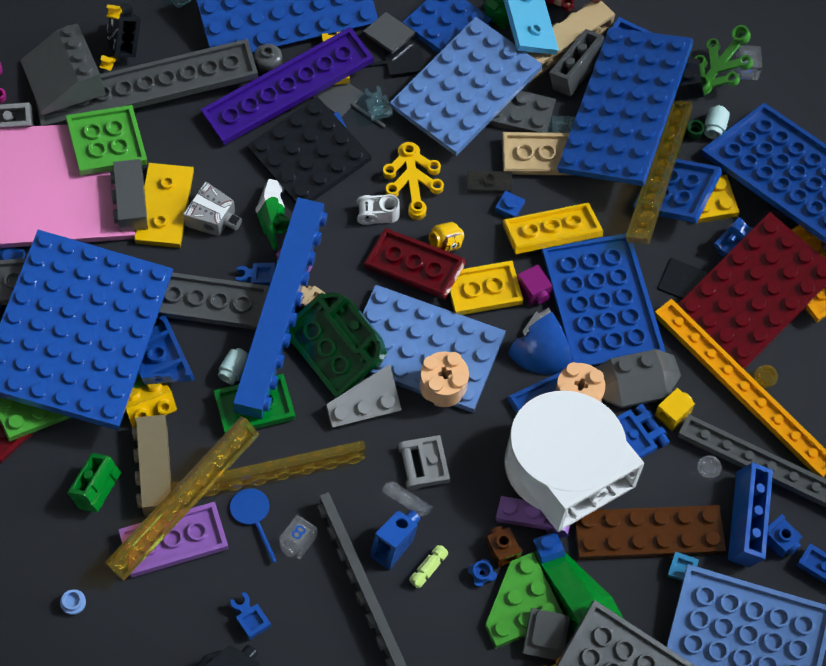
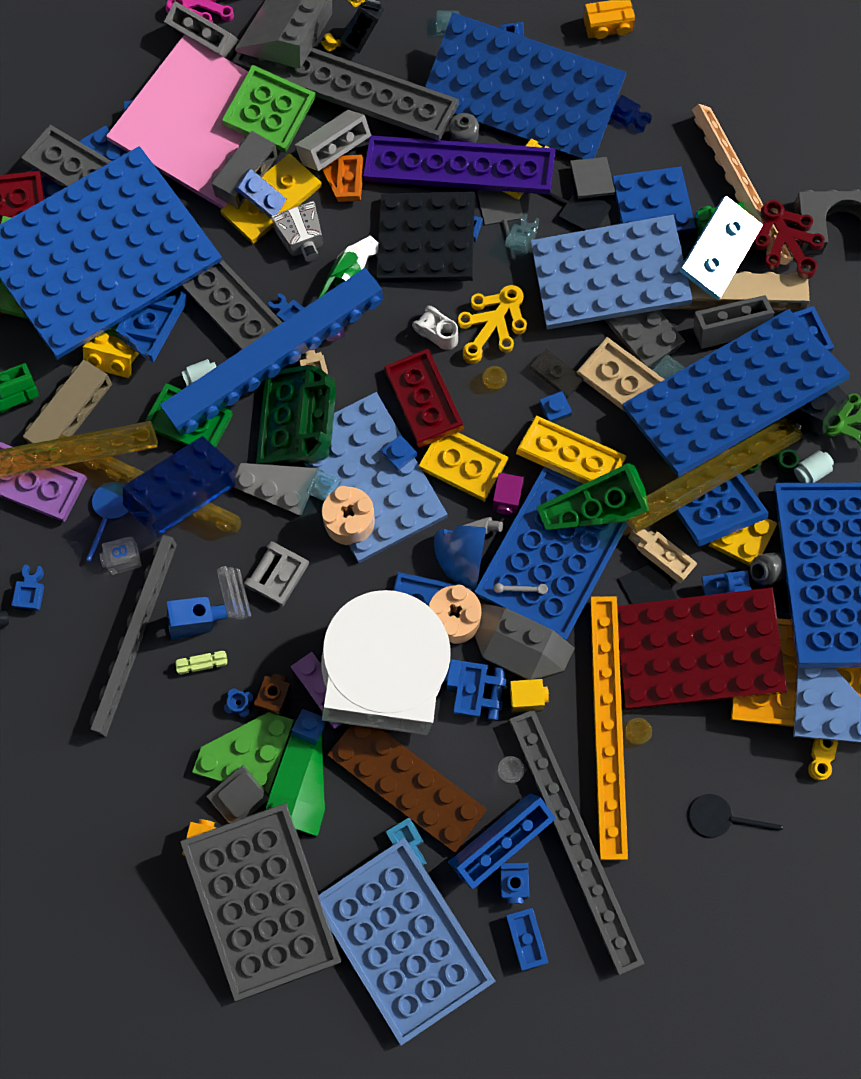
camera: 45 degrees right, 10 degrees up
(161, 203) = (260, 193): none -> plate
(178, 129) = (333, 140): none -> light grey brick
(206, 151) = (346, 177): none -> orange wing
(304, 448) = (179, 486): none -> clear blue brick
(405, 373) = (323, 484): none -> clear light blue plate
(435, 312) = (399, 452): none -> blue plate
(446, 236) = (471, 395): yellow head -> none
(449, 213) = (494, 378): none -> clear yellow plate
(590, 351) = (541, 589): none -> light grey hinge
(608, 239) = (603, 500): none -> green wedge
(673, 248) = (663, 554): none -> tan hinge
(751, 207) = (768, 569): none -> dark grey head

